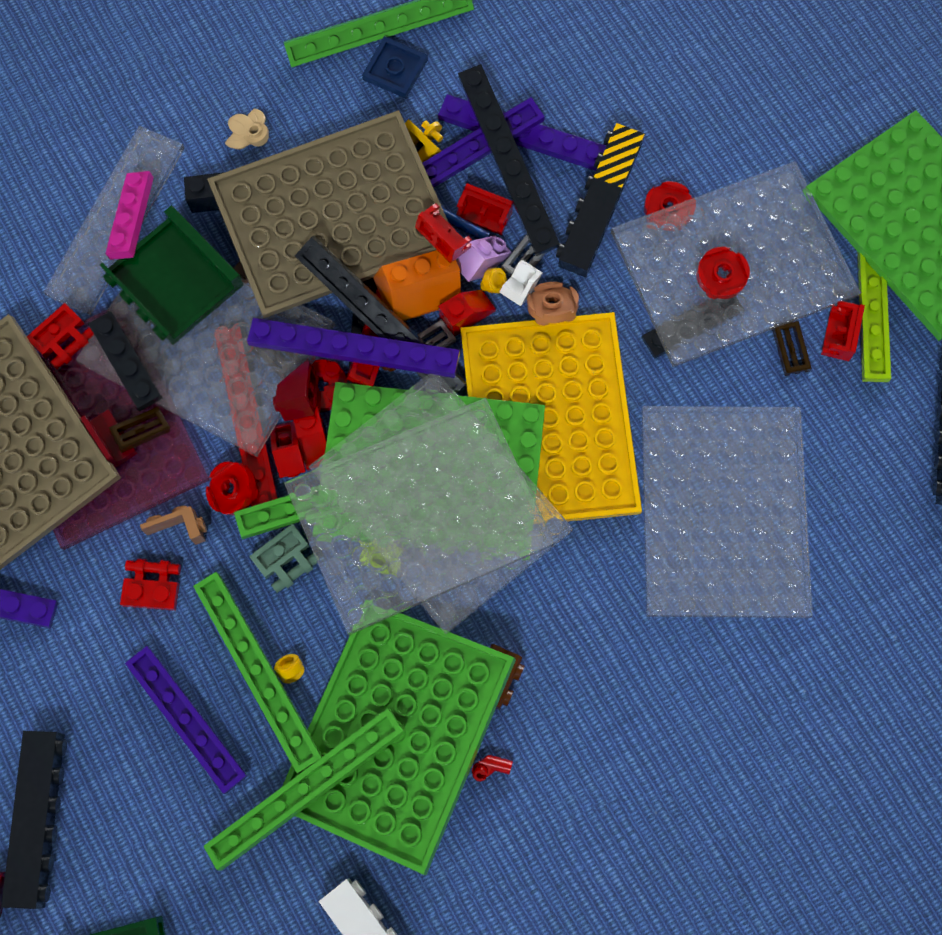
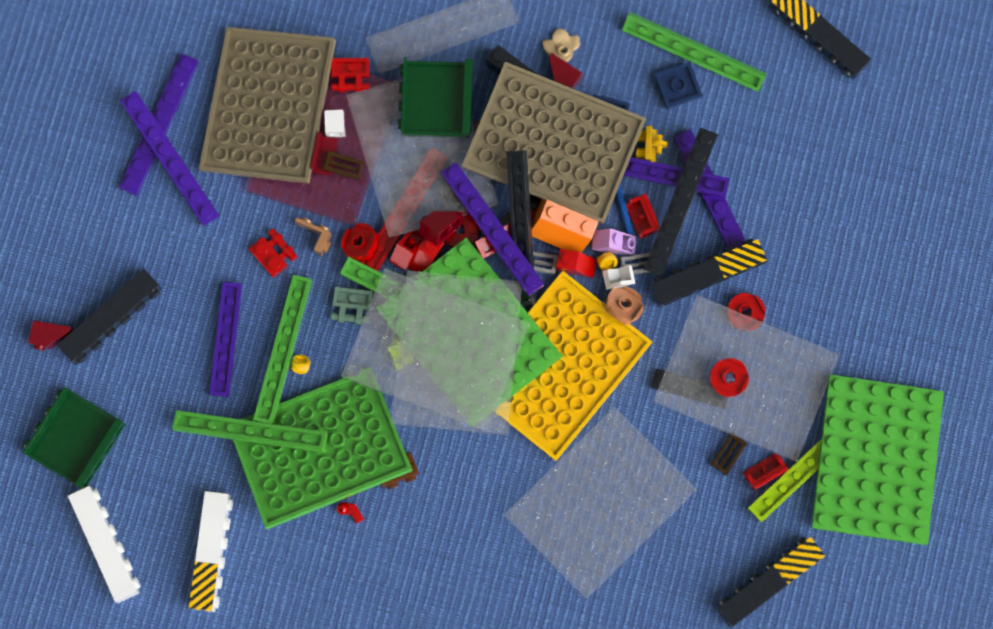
camera: 45 degrees right, 5 degrees up
(90, 396) = (334, 123): none -> white panel
(125, 361) = (369, 121): black plate -> none
(129, 215) = (448, 40): dark pink plate -> none
(266, 146) = (564, 72): none -> dark red slope
(442, 234) = (598, 212): red hinge -> none

